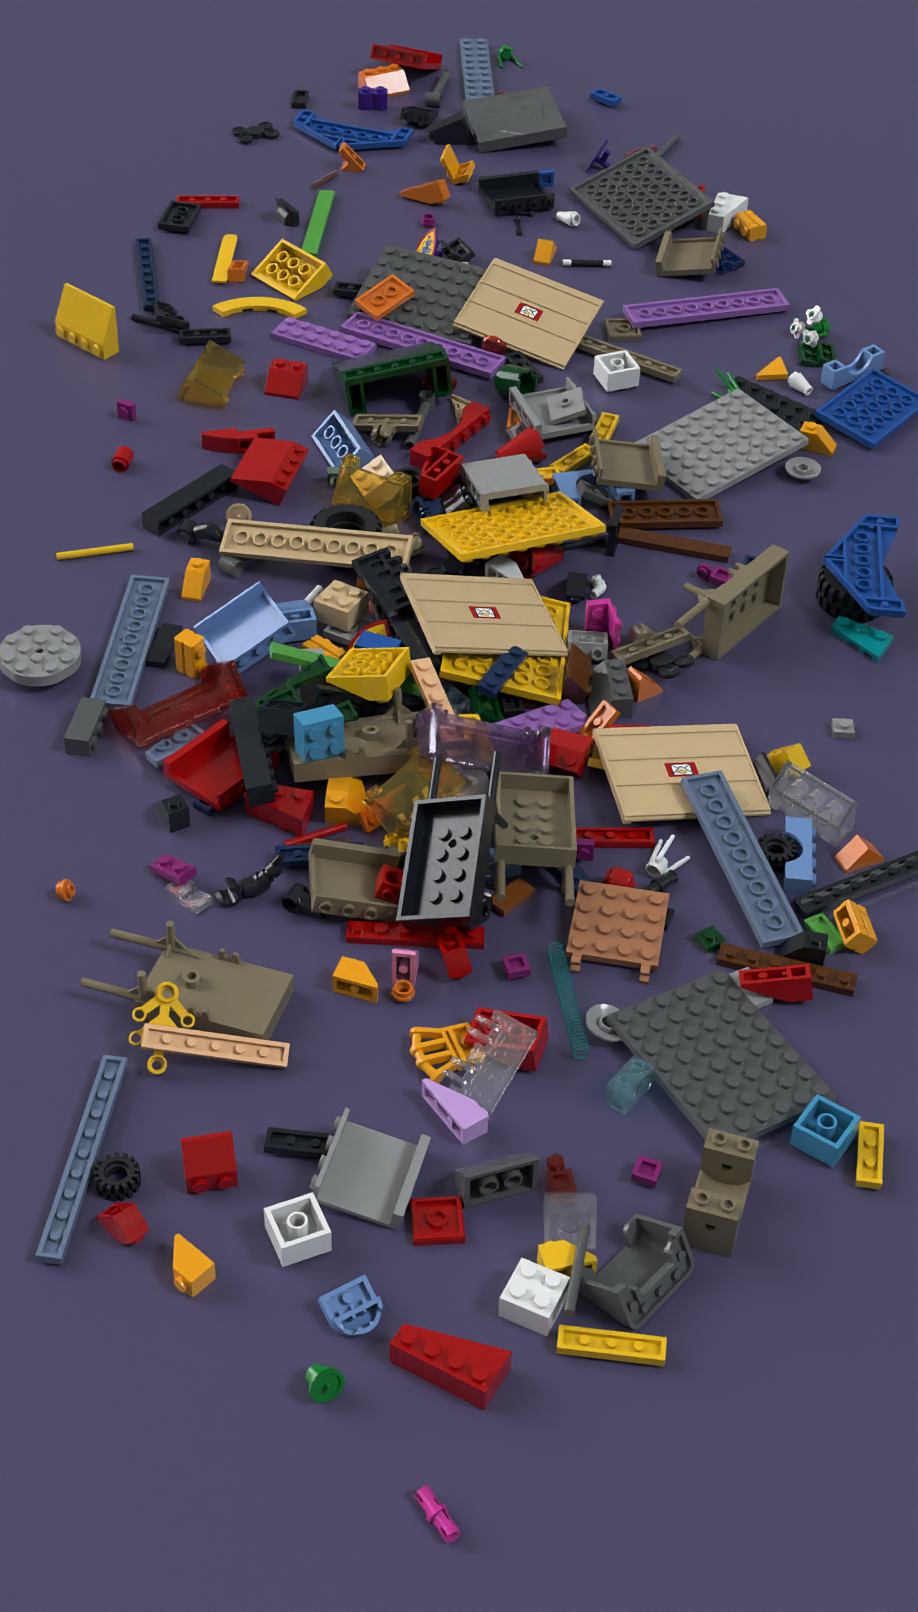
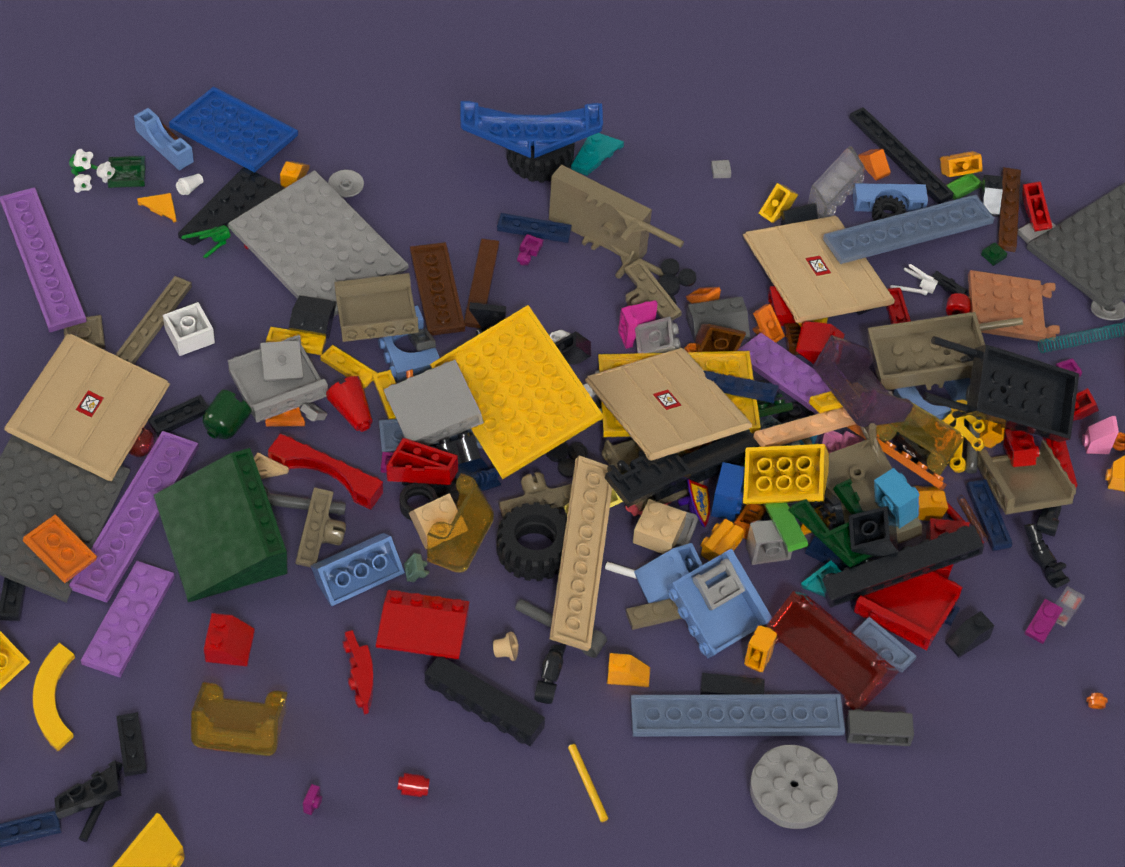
camera: 100 degrees left, 10 degrees up
(252, 624) = (722, 590): none -> light grey plate
(626, 429) = (312, 315): none -> black slope

